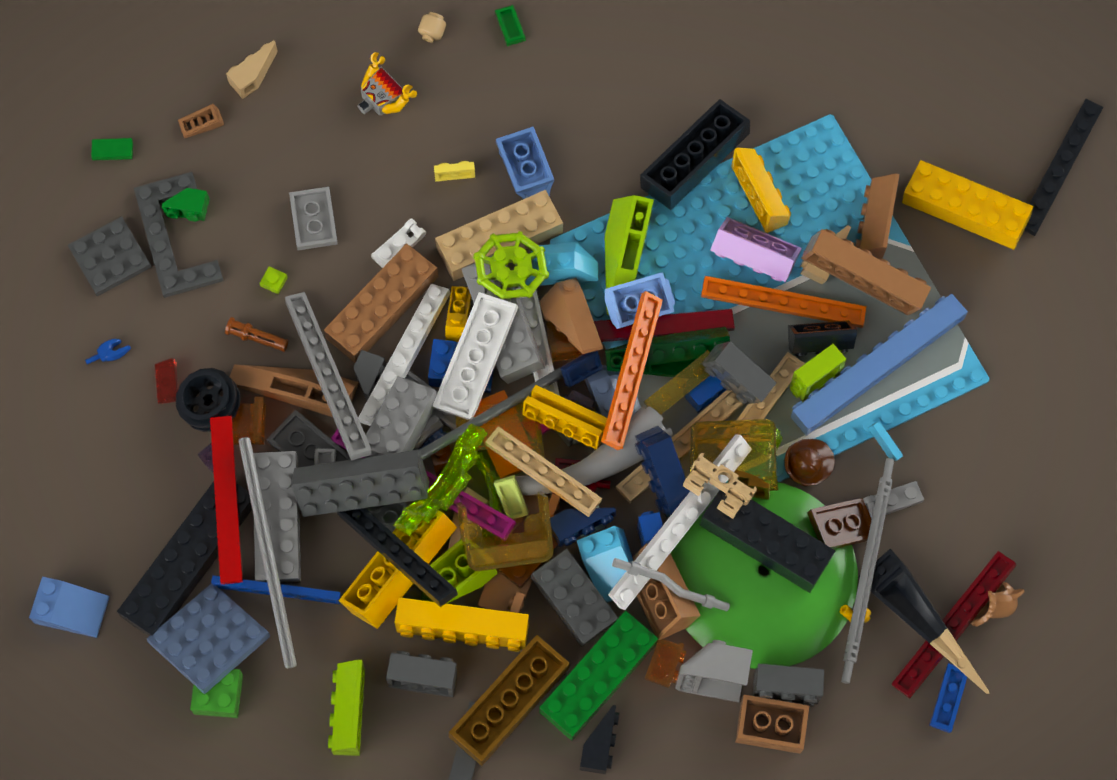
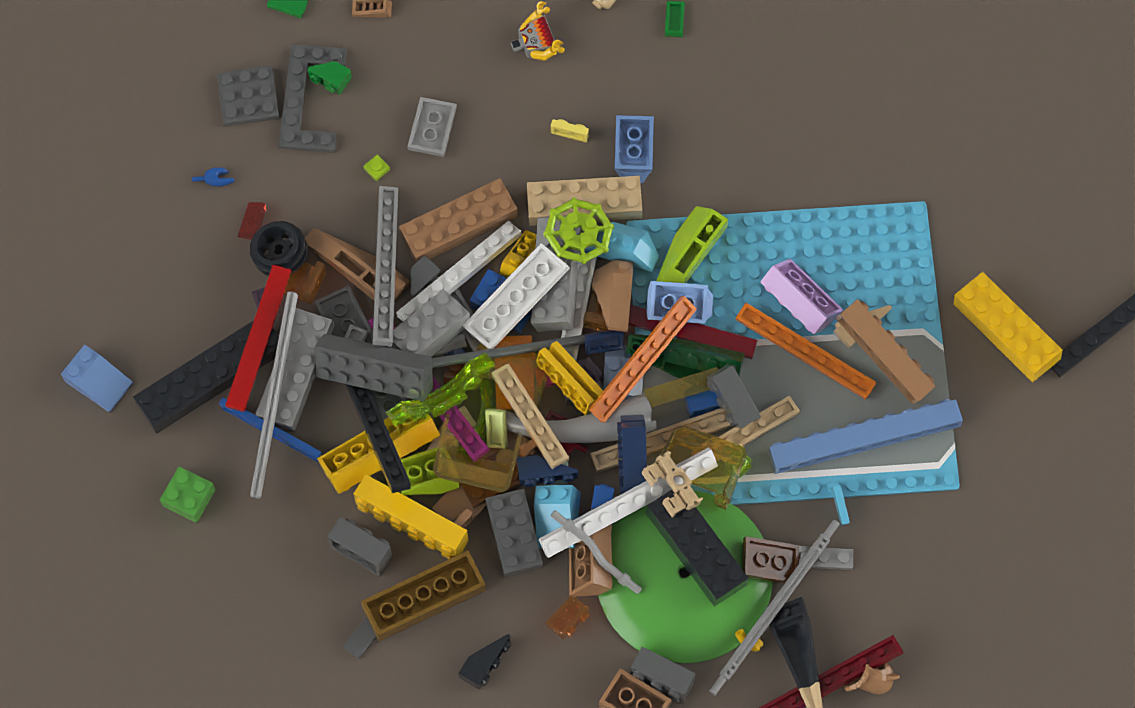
camera: 25 degrees right, 0 degrees up
(208, 638) = (198, 447): sand blue plate -> none
(245, 334) = (335, 204): dark orange pin -> none
(347, 709) = (289, 550): lime slope -> none
(397, 241) = (487, 176): white plate -> none
(598, 675) = (507, 605): green brick -> none
(695, 154) = (784, 192): black brick -> none
(716, 671) = (602, 639): light grey windscreen -> none
(751, 481) = (709, 500): pearl gold slope -> none
(760, 189) = (828, 247): yellow slope -> none
(809, 462) = (766, 497): reddish brown hat -> none
(817, 372) = (805, 422): lime window -> none
(819, 336) = (823, 394): black slope -> none
(877, 214) = (920, 308): medium nougat slope -> none

